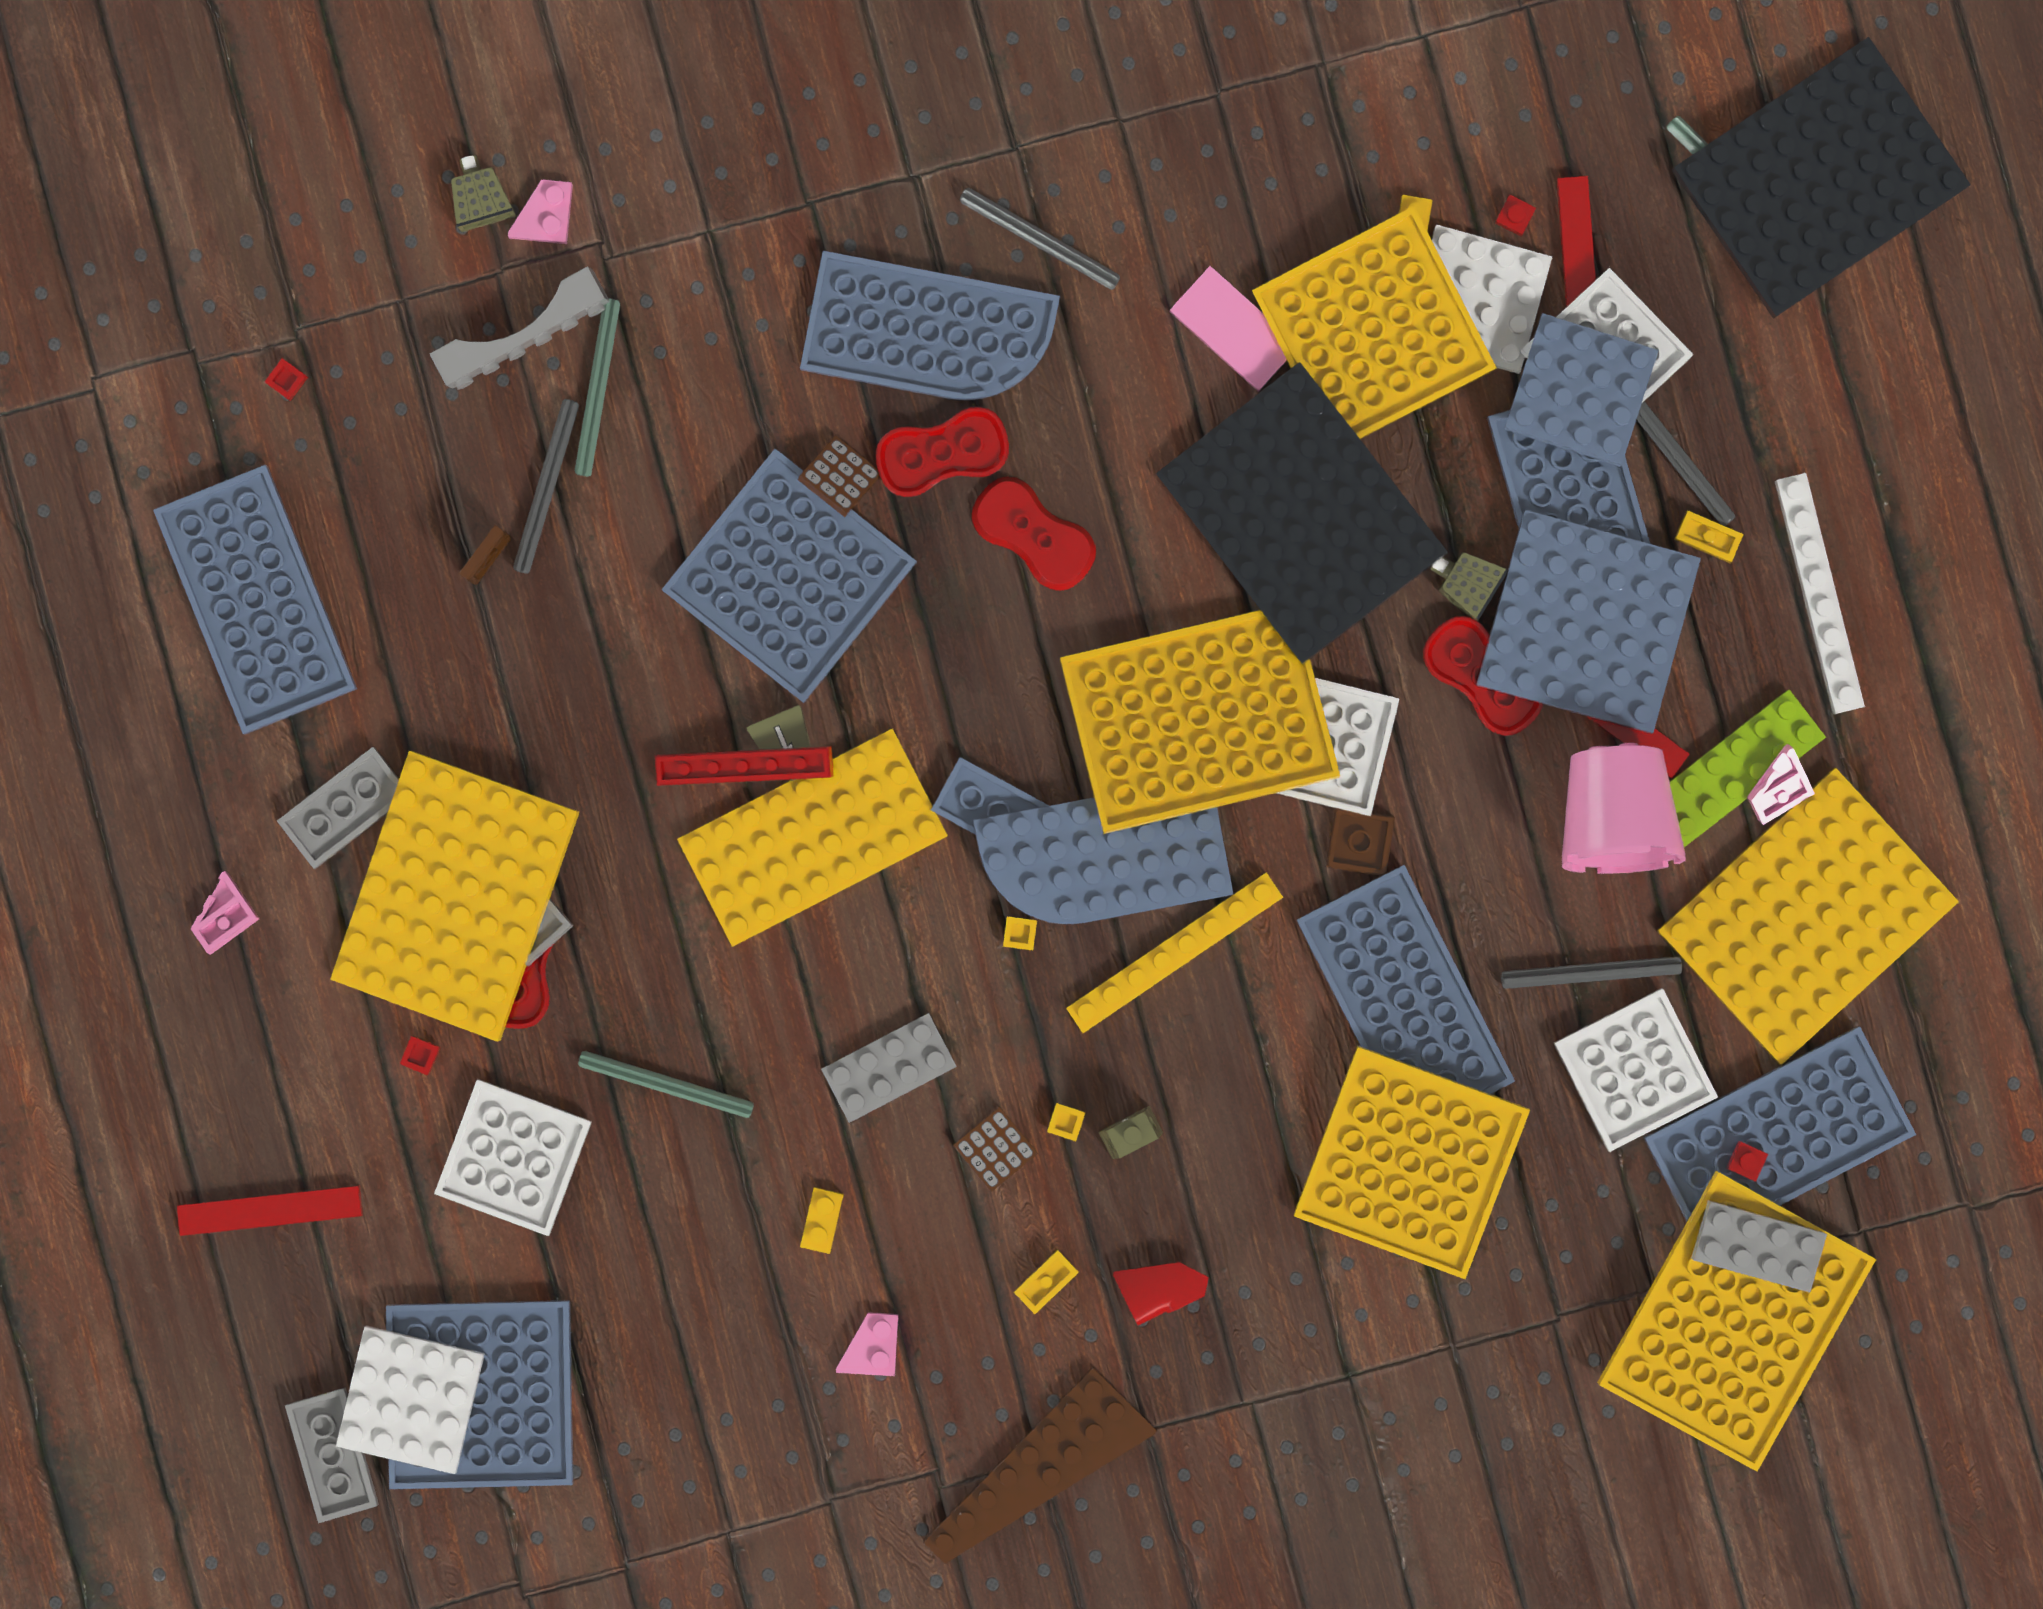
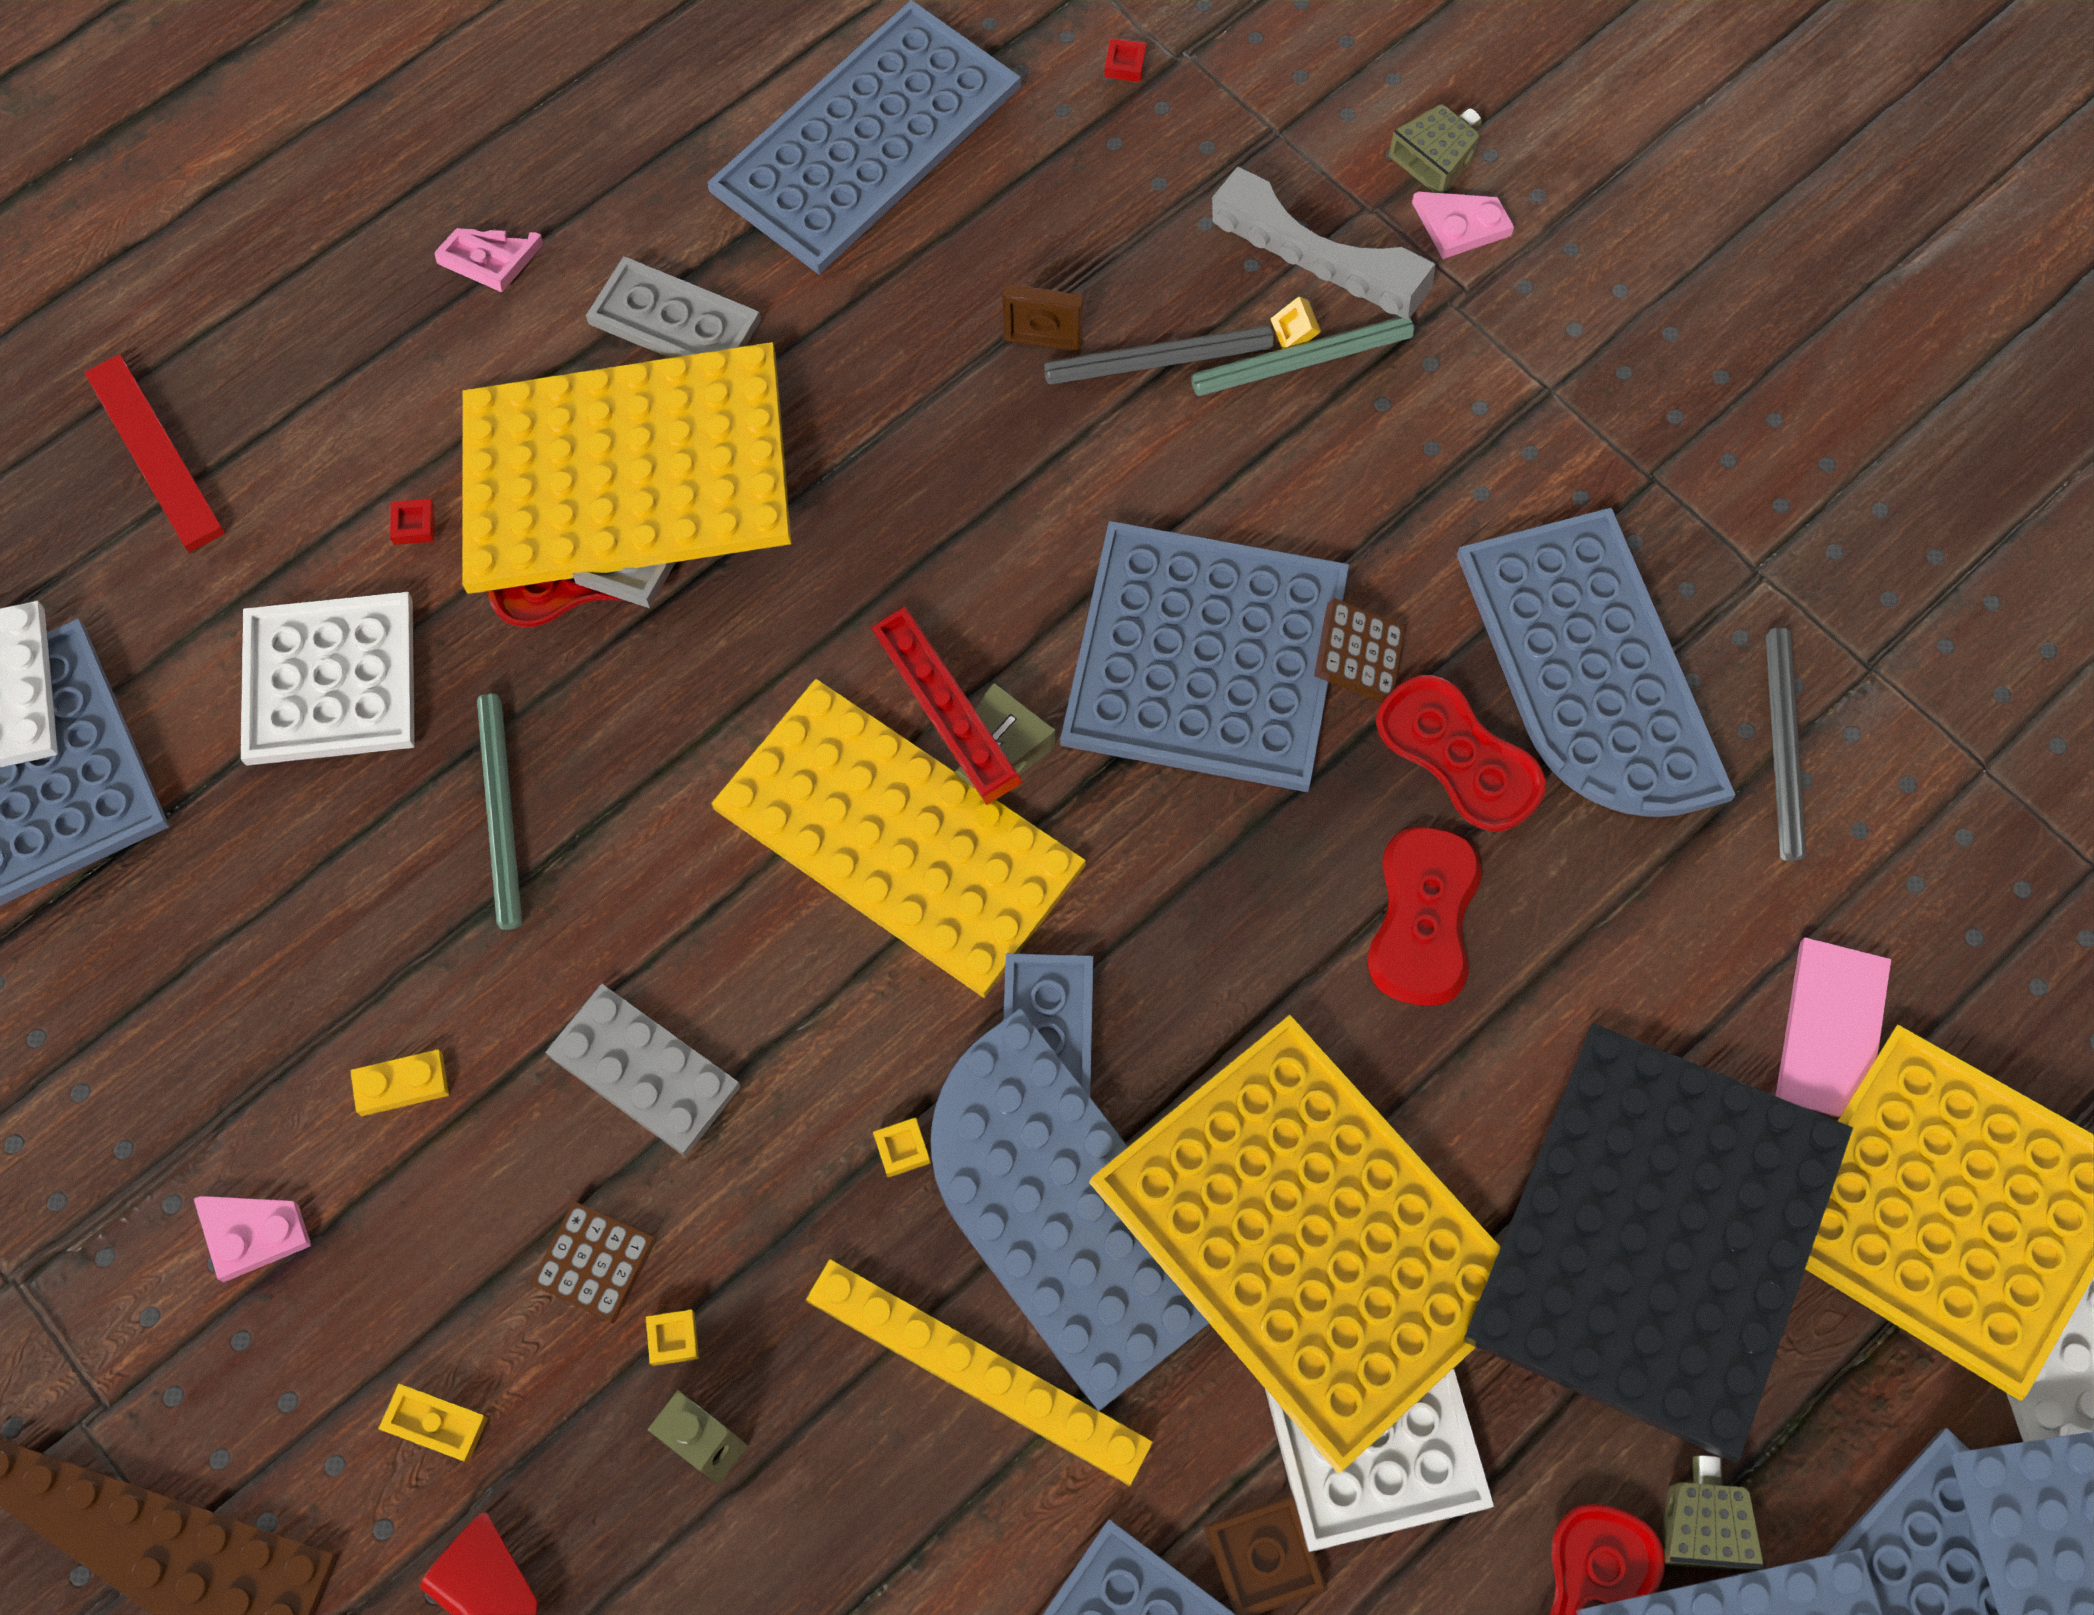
camera: 70 degrees right, 20 degrees down
(573, 380) = (1295, 323): none -> yellow plate

